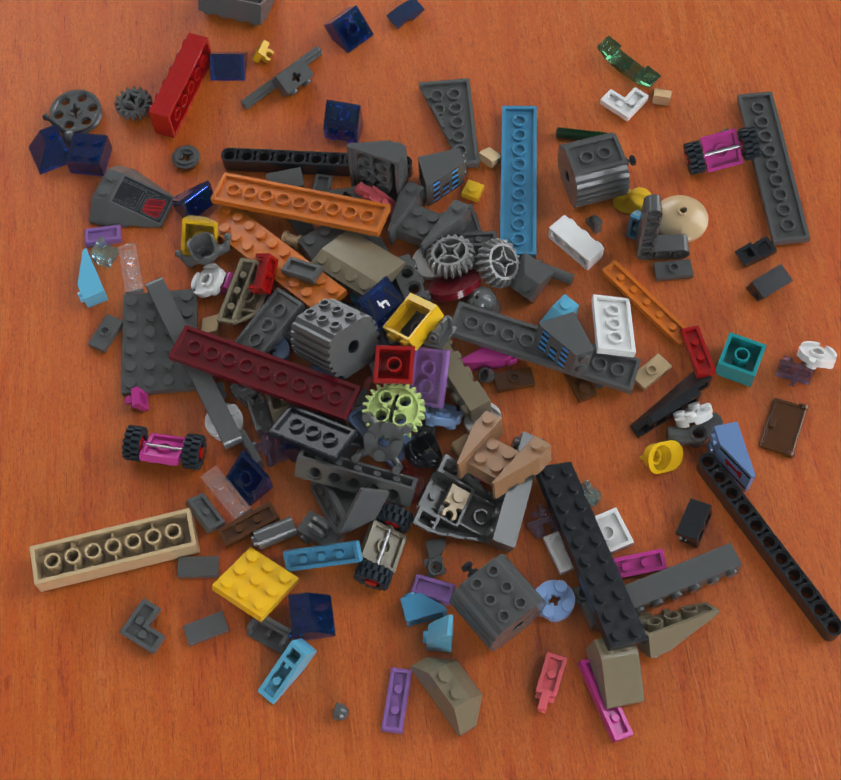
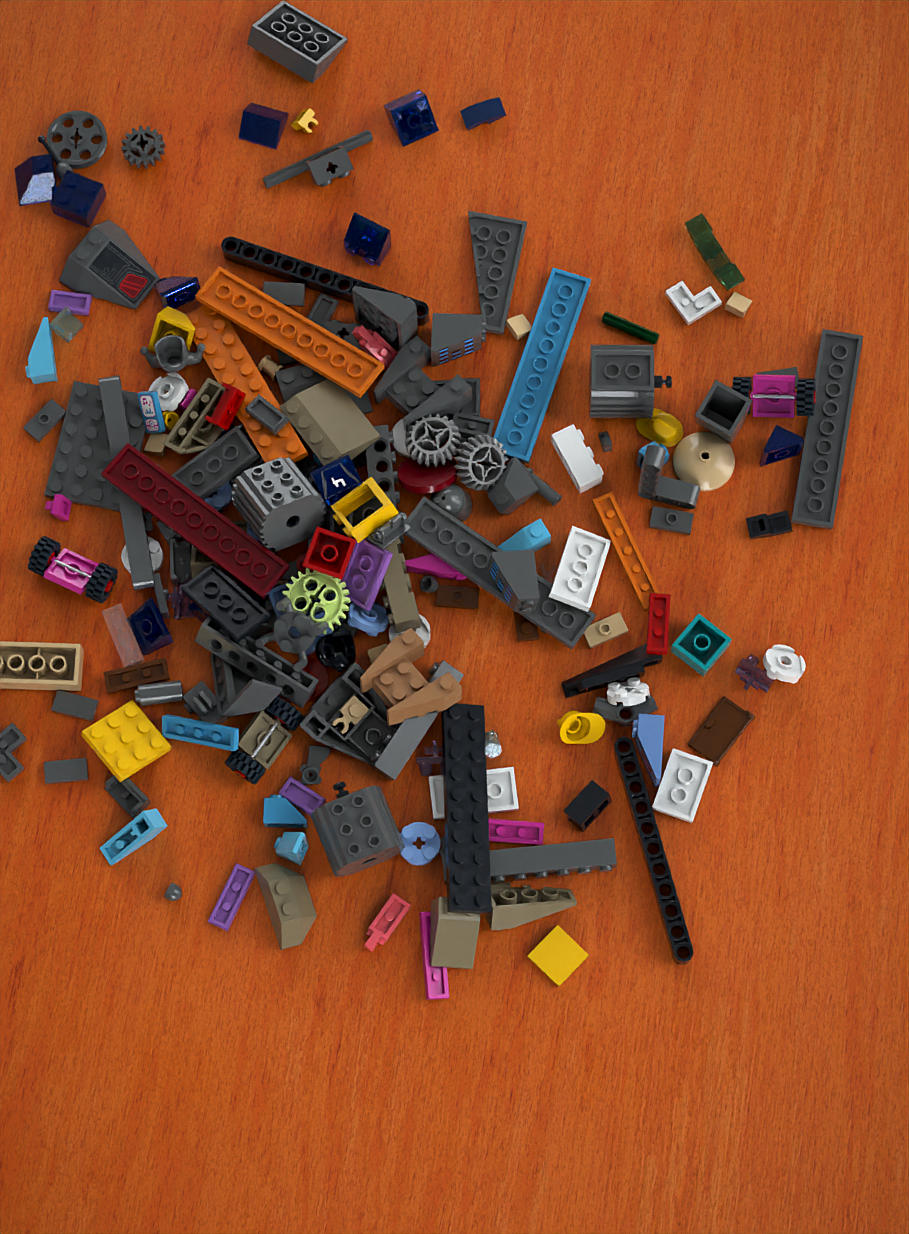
camera: 15 degrees right, 10 degrees up
(131, 268) = (89, 352): clear plate -> none
(180, 85) = (200, 141): red brick -> none
(190, 152) = (189, 225): dark grey gear -> none
(198, 299) = (151, 411): none -> tile
(205, 513) = (96, 651): dark grey plate -> none
(215, 299) = (173, 419): none -> yellow plate
(311, 616) = (172, 789): clear blue slope -> none
(472, 191) = (486, 362): yellow plate -> none
(687, 170) = (723, 411): none -> dark grey slope
(718, 665) = (558, 955): none -> yellow tile
(743, 186) = (781, 446): none -> clear blue slope
(769, 283) = (768, 567): black hinge -> none
(772, 484) = (682, 785): none -> white plate

